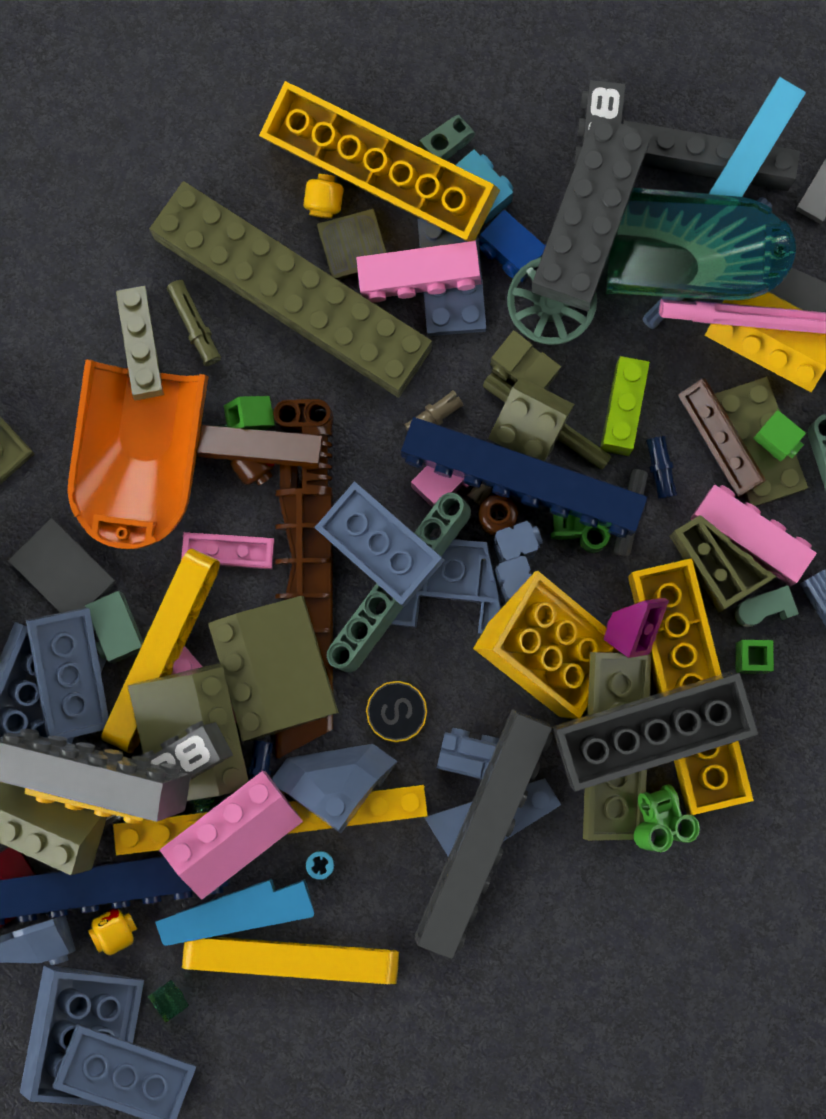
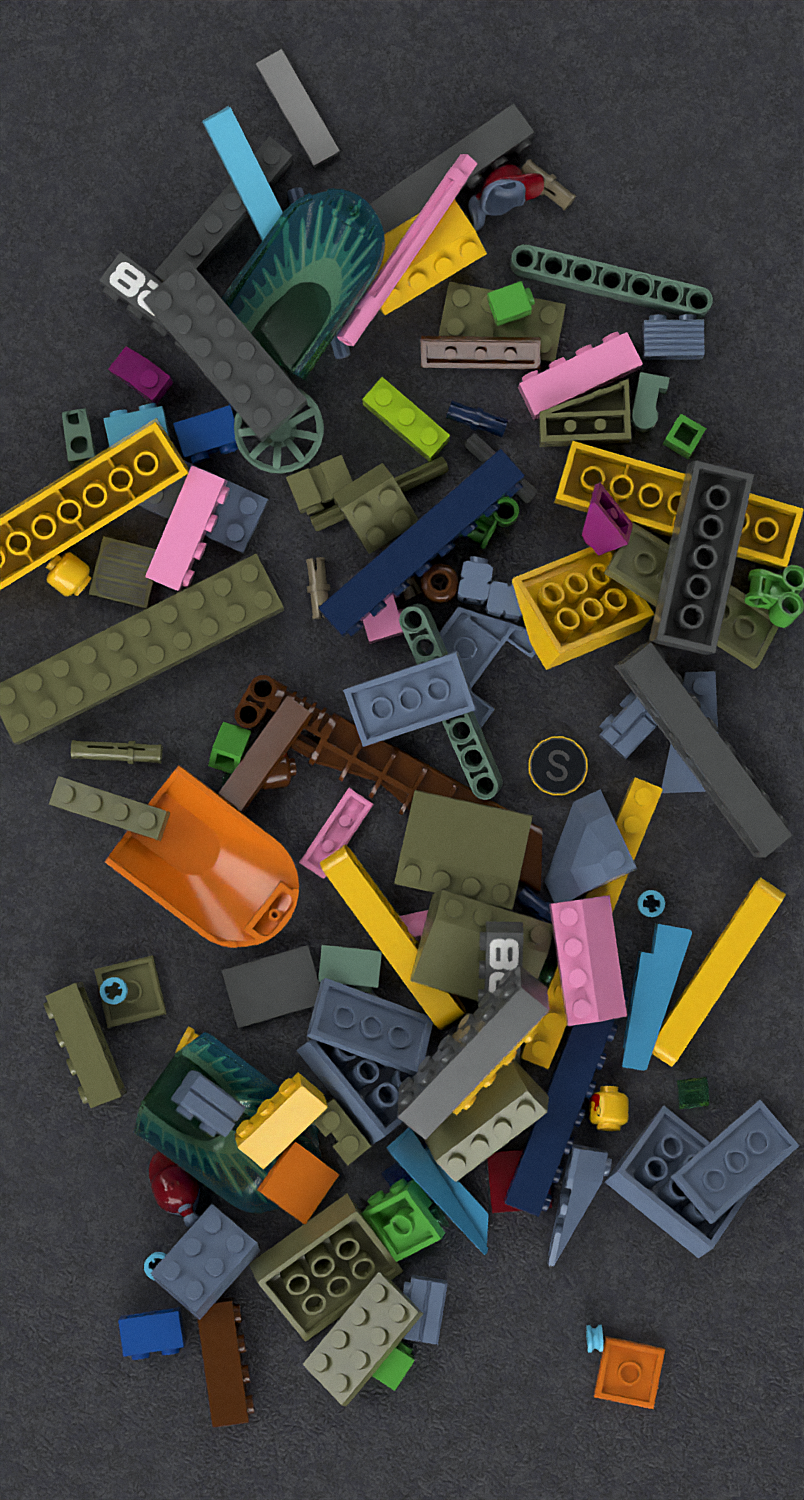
camera: 60 degrees left, 5 degrees up
(530, 165) = (141, 375): none -> magenta slope

